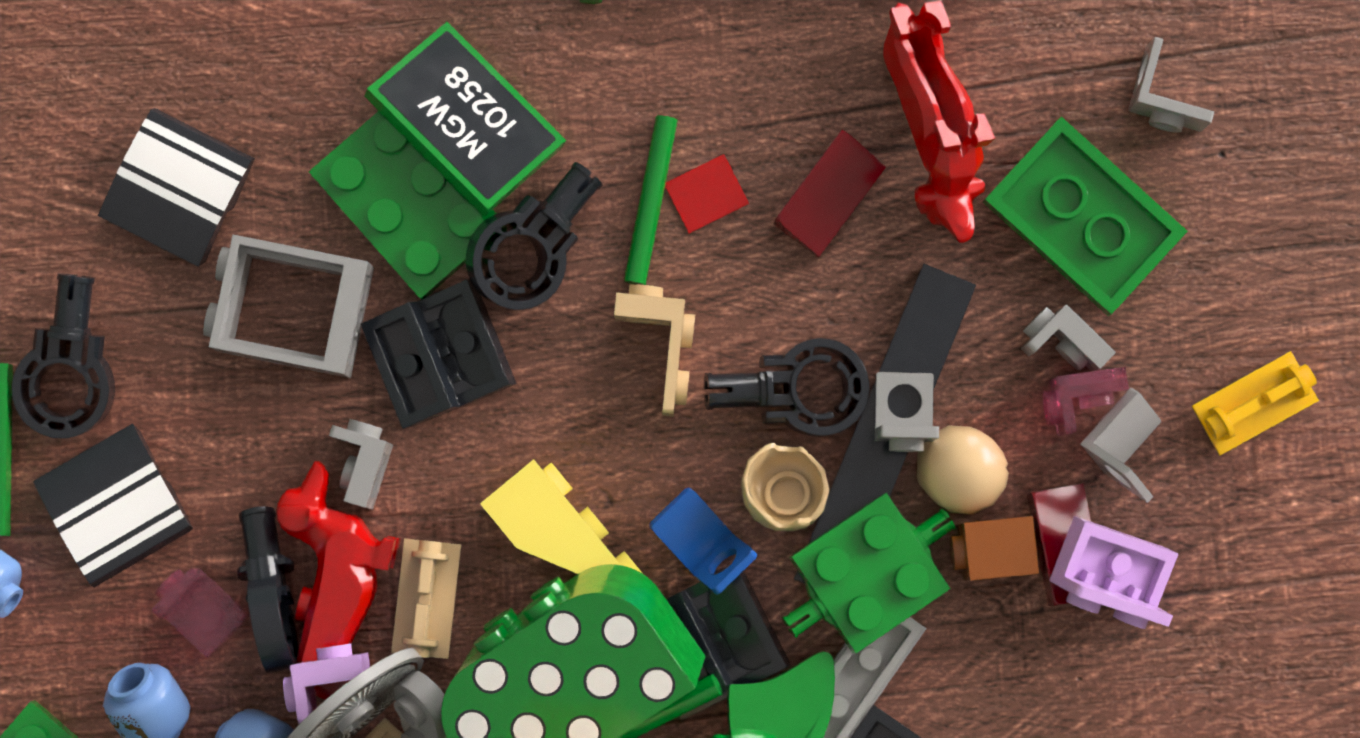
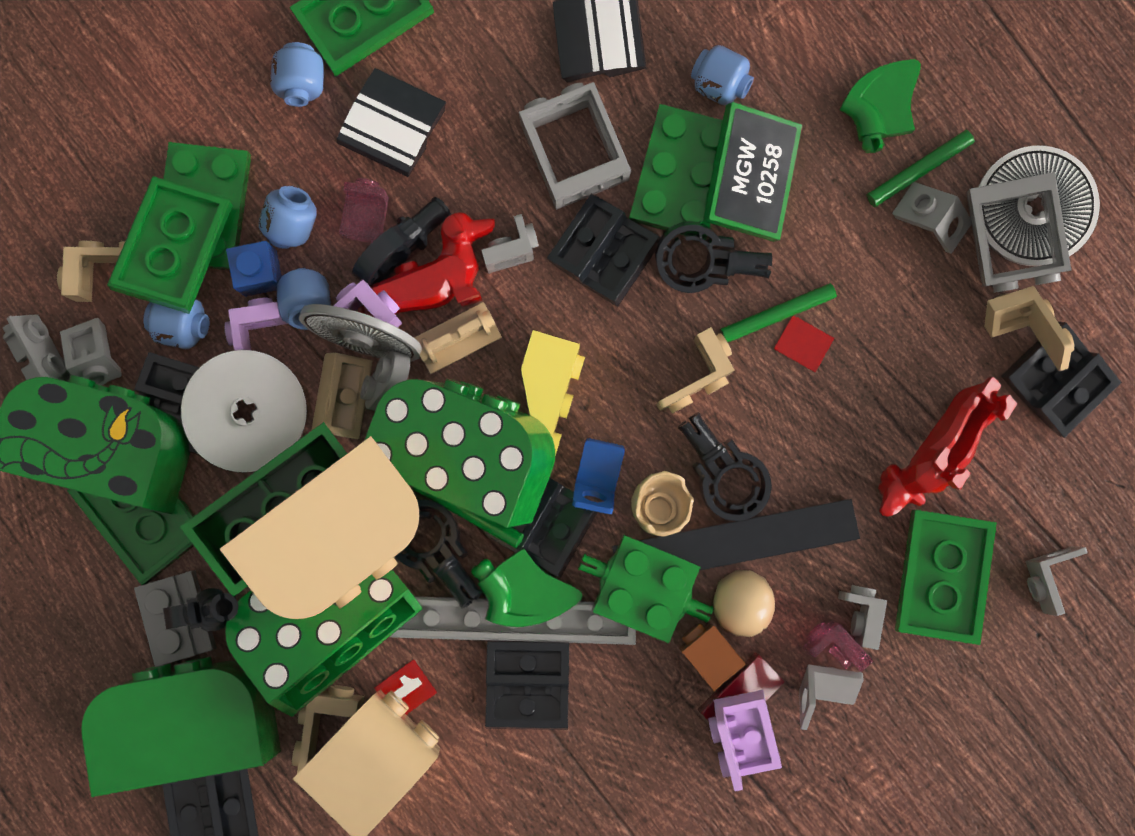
camera: 60 degrees right, 0 degrees up
(85, 356) = (466, 48): black pin -> none
(325, 76) = (722, 75): none -> medium blue head
(829, 193) = (854, 415): dark red slope -> none
(905, 433) = (745, 557): light grey bracket -> none
(1256, 402) = (904, 755): yellow hinge -> none

